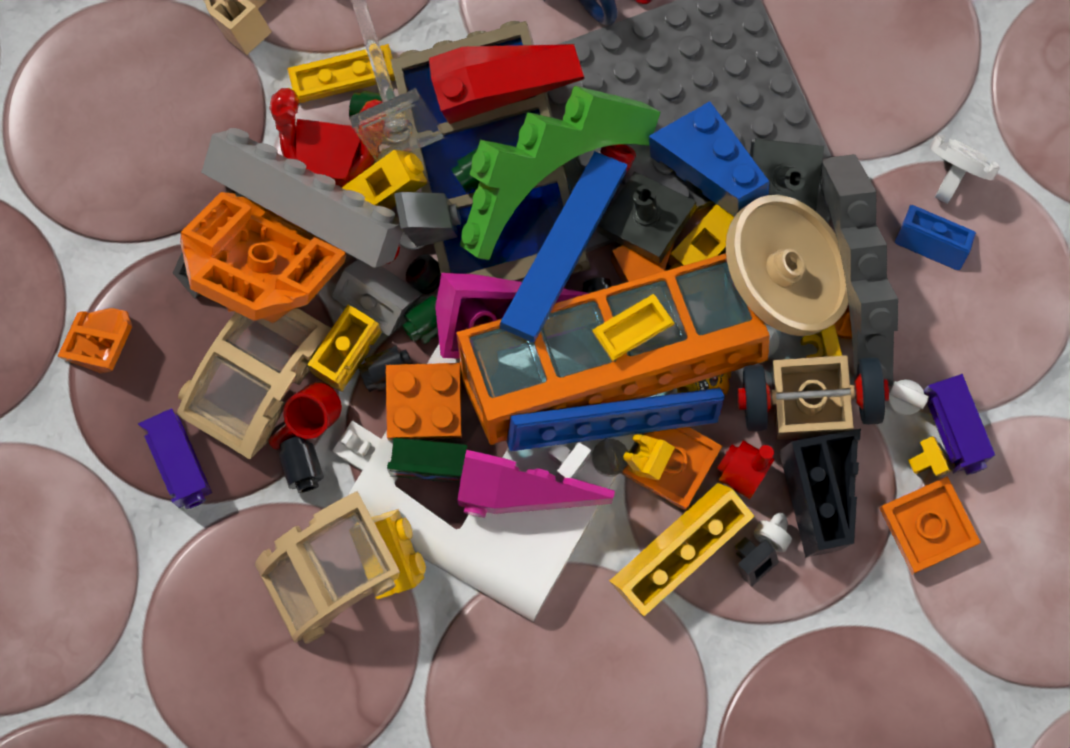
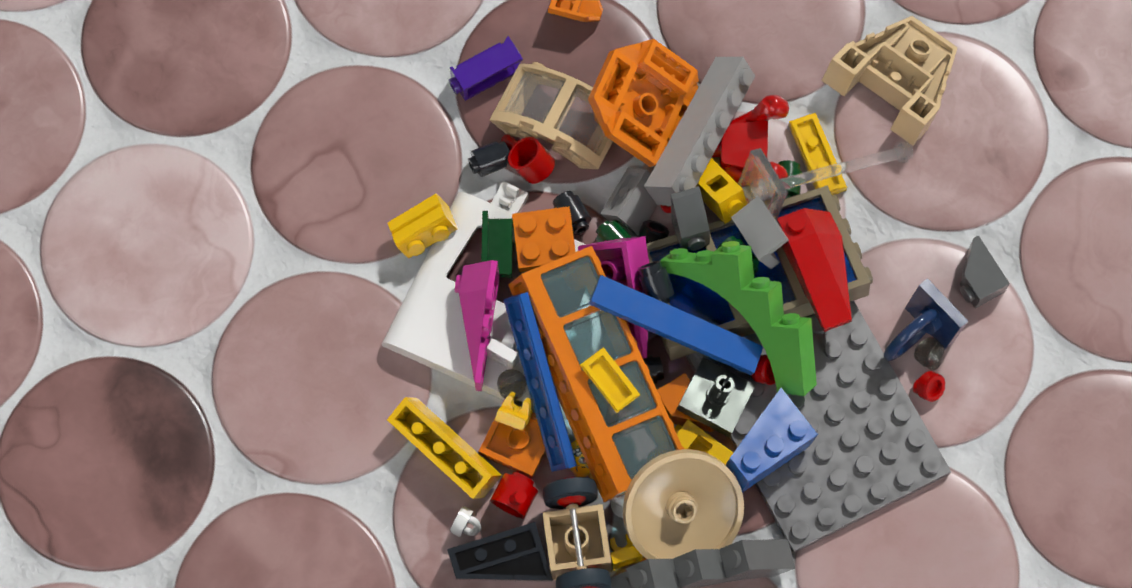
camera: 85 degrees right, 5 degrees down
(327, 567) = (407, 181): window -> none
(344, 348) = (583, 178): yellow brick -> none
(451, 133) = (760, 231): none -> light grey panel
(505, 265) = (655, 281): none -> black brick
(755, 560) = (440, 509): black tile -> none
(790, 168) = (770, 510): pearl dark grey tile -> none

